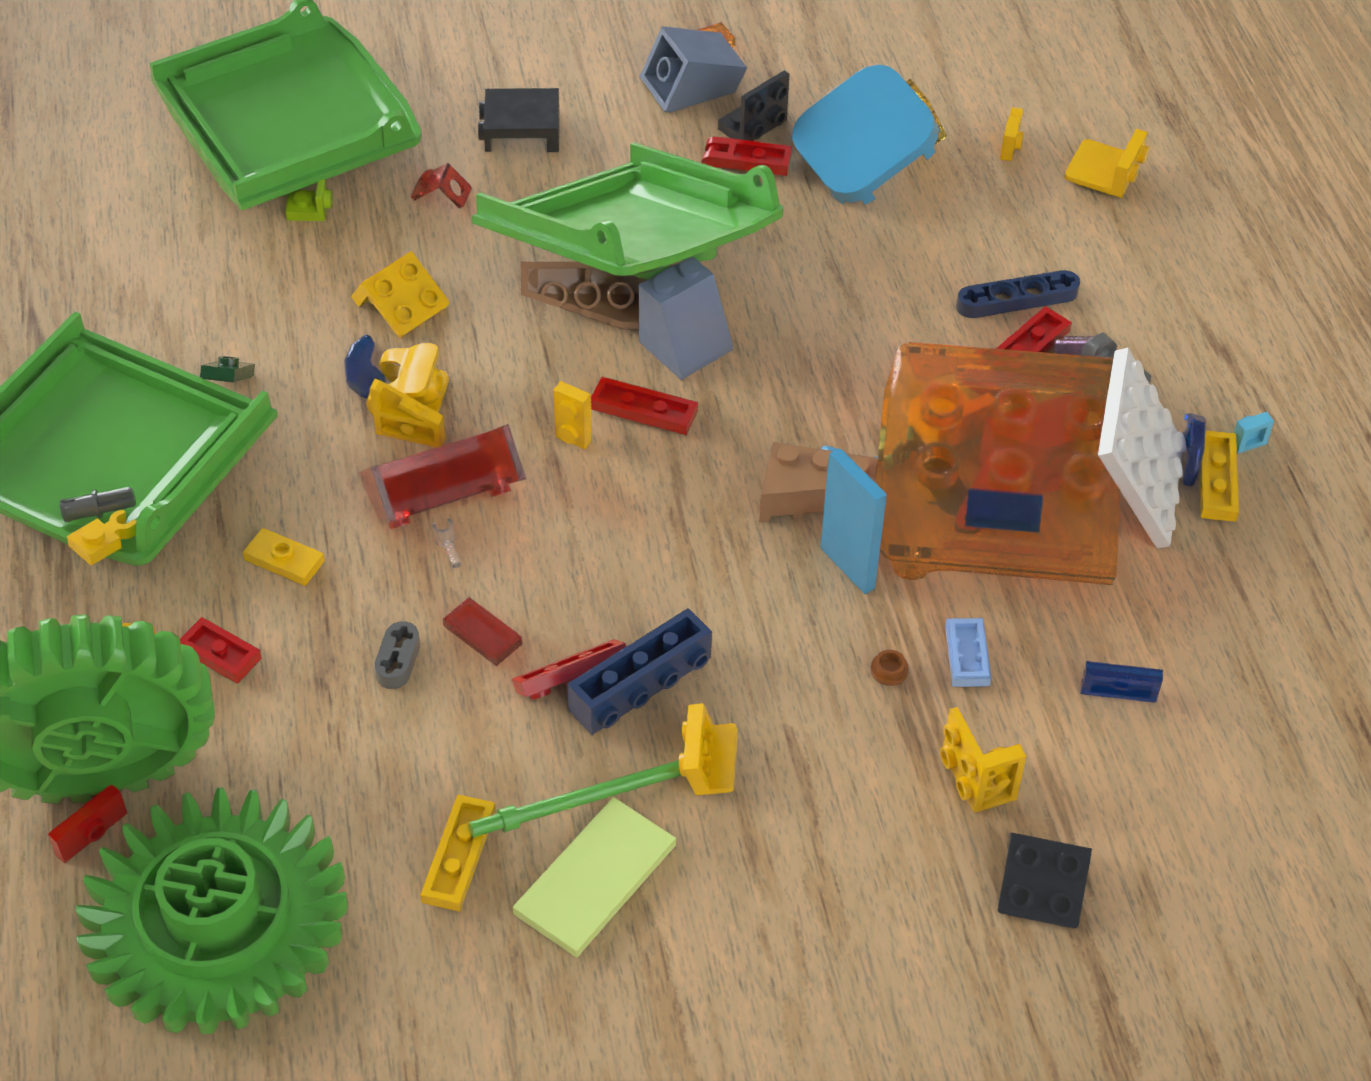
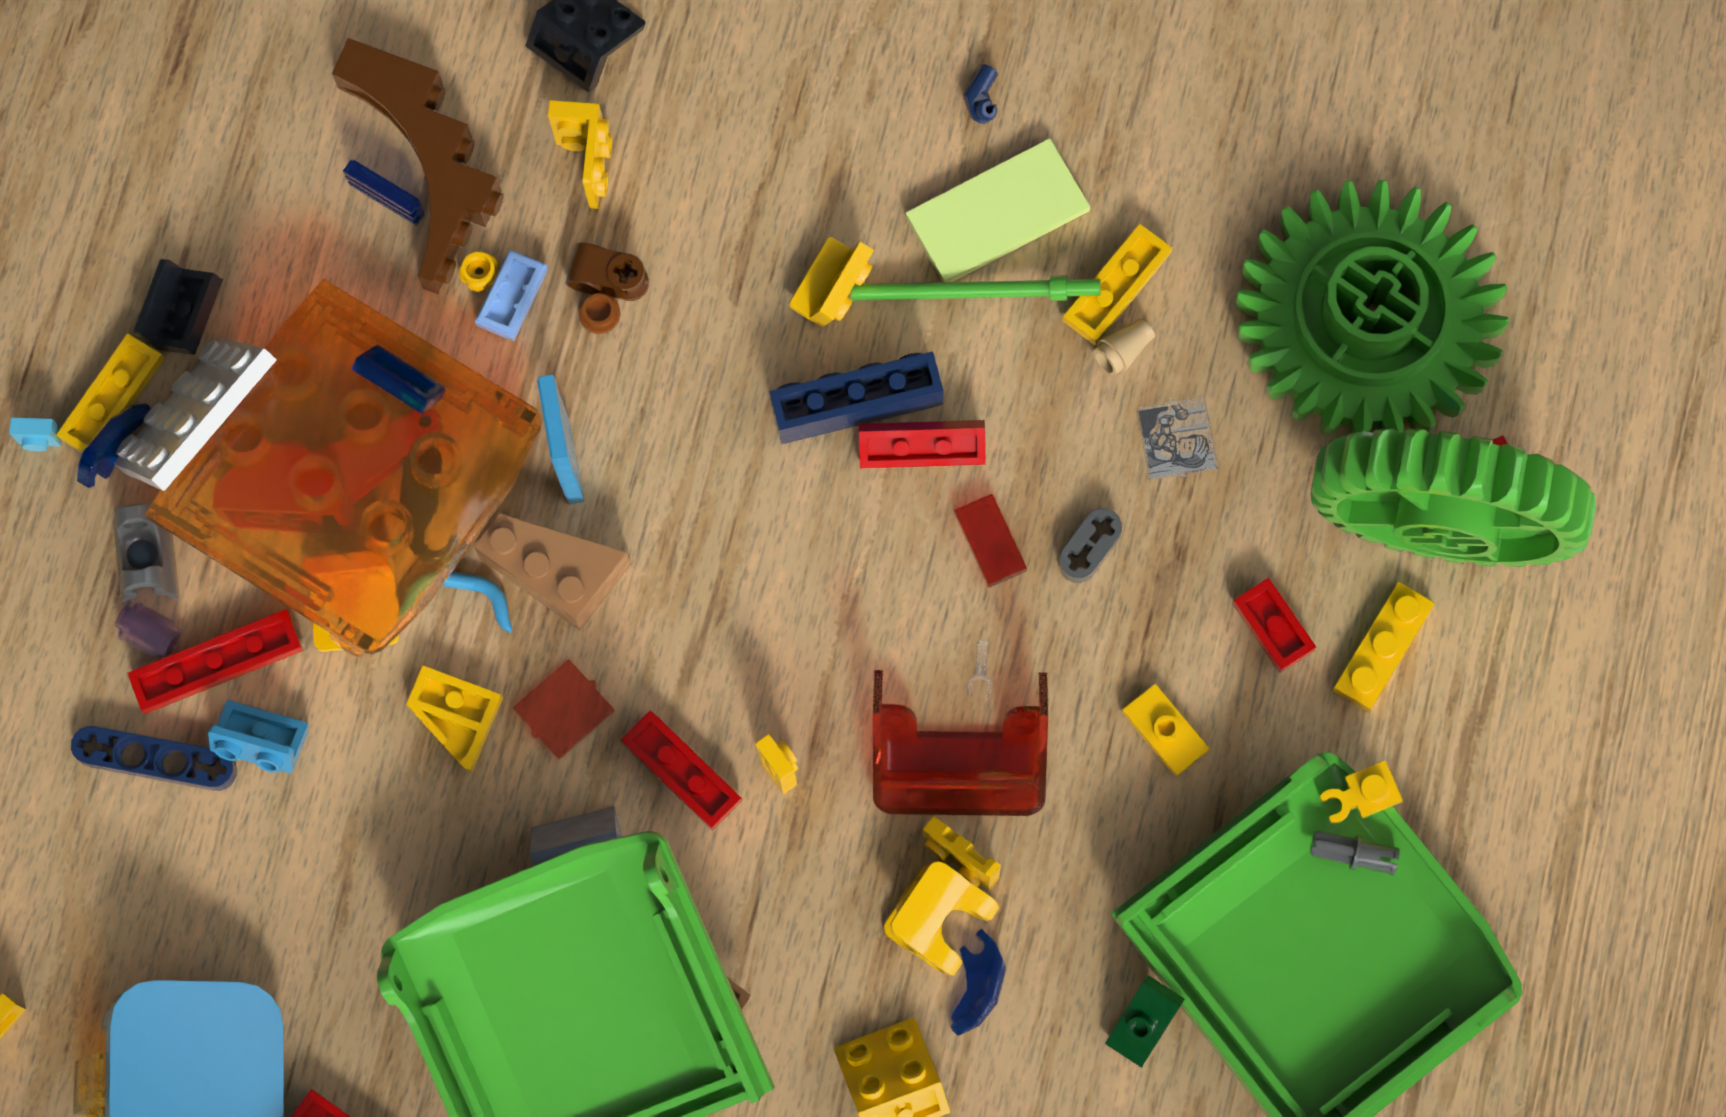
camera: 150 degrees left, 25 degrees up
(356, 762) = (1177, 438): none -> clear piece
(432, 802) = (1119, 350): none -> tan cone
(660, 964) = (977, 97): none -> dark blue arm
(752, 419) = (564, 709): none -> clear red piece
(829, 383) = (454, 713): none -> yellow wing
(904, 690) = (601, 269): none -> reddish brown piece
(954, 316) = (258, 737): none -> dark azure bracket
(1006, 653) = (477, 261): none -> yellow plate
(1153, 757) = (457, 193): none -> reddish brown arch
(1217, 544) = (177, 308): none -> black bracket

